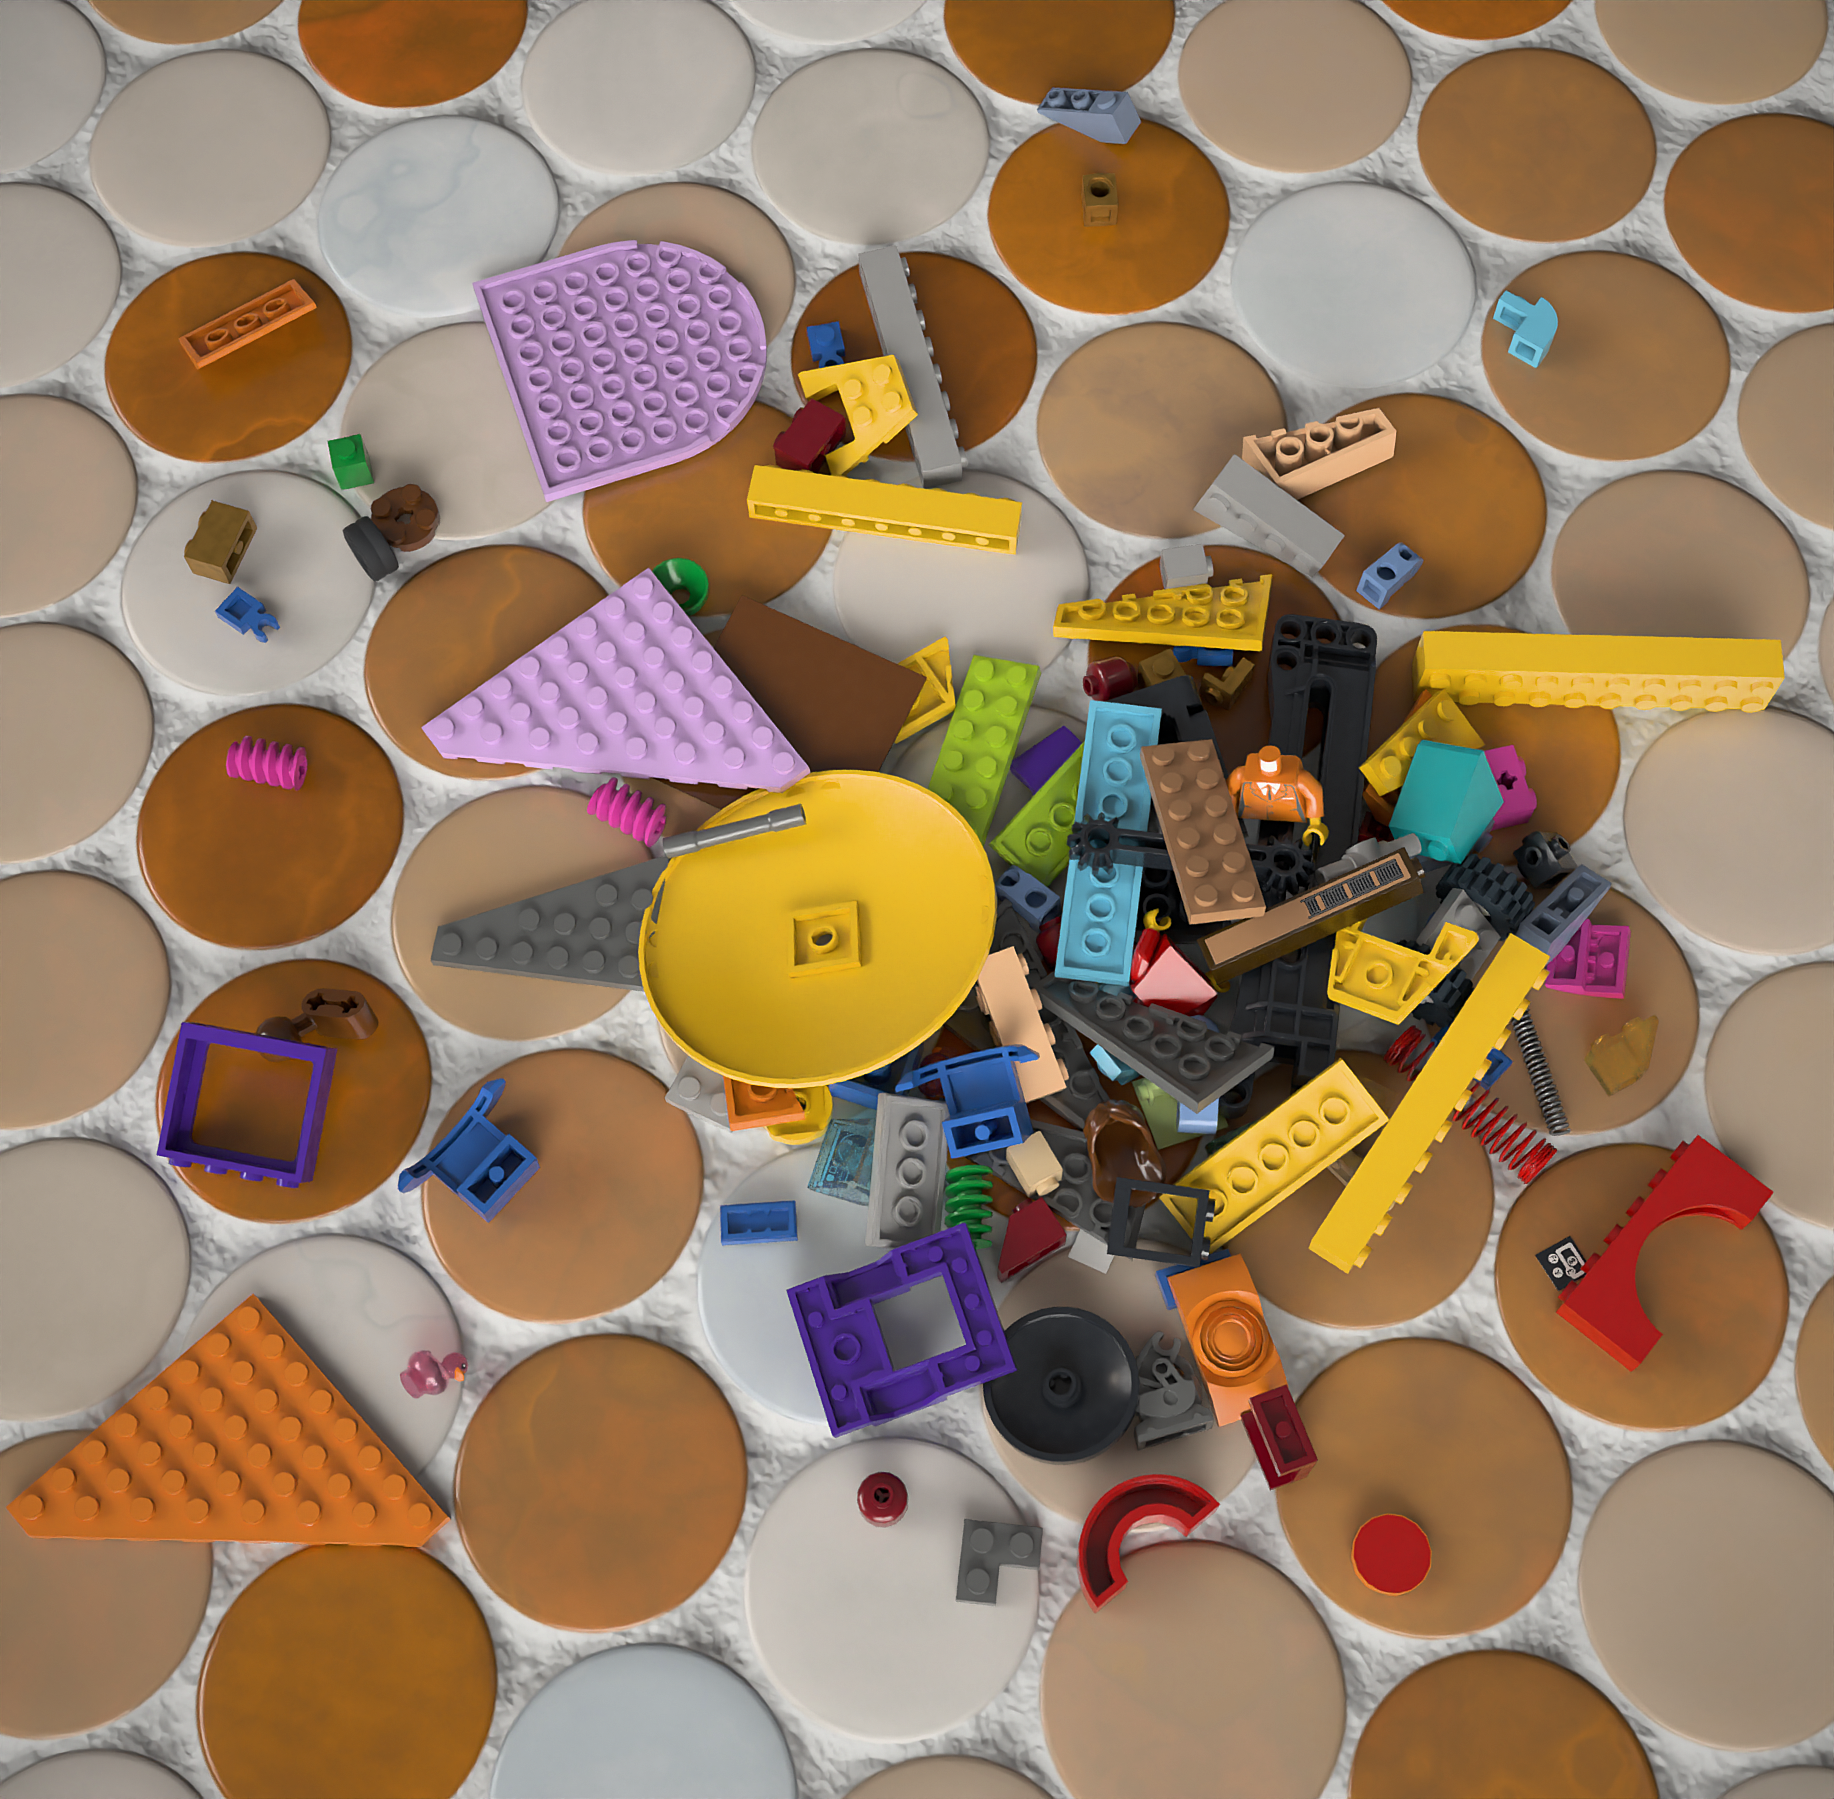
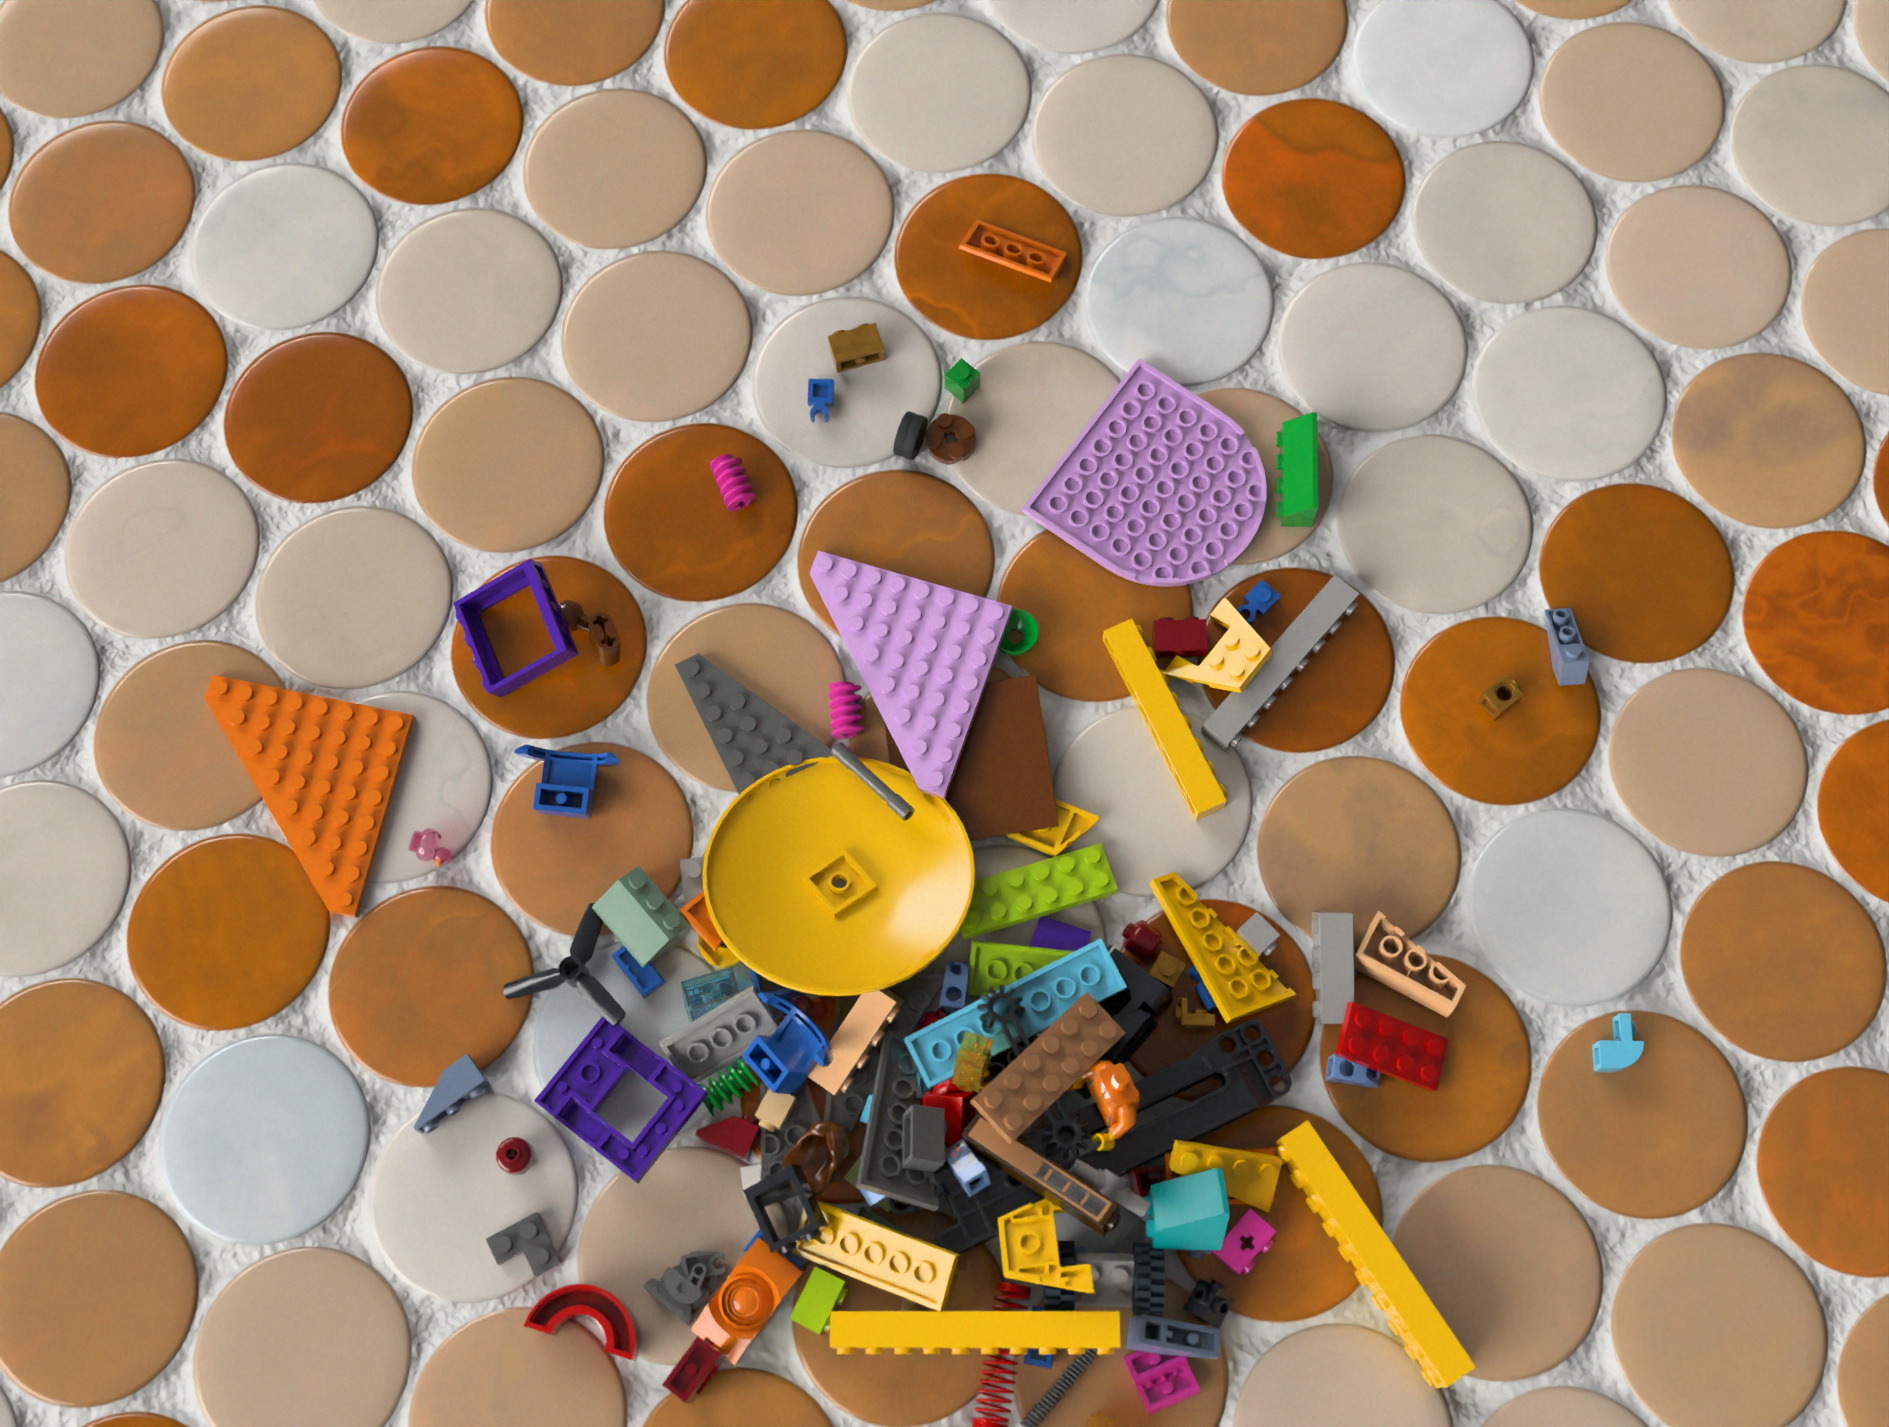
camera: 55 degrees right, 5 degrees up
(702, 1176) = (641, 917): none -> slope
(721, 215) = (1297, 471): none -> slope
(739, 1289) = (588, 986): none -> black piece
(748, 1518) = (455, 1087): none -> sand blue slope
(1070, 1388) = (651, 1222): black dish -> none
(1140, 904) = (972, 1062): none -> clear yellow brick
(1186, 1013) = (924, 1138): none -> dark grey piece
(1247, 993) = (967, 1168): none -> medium blue leg
(1281, 1260) = (818, 1300): none -> lime brick
(1391, 518) = (1392, 1046): none -> red plate

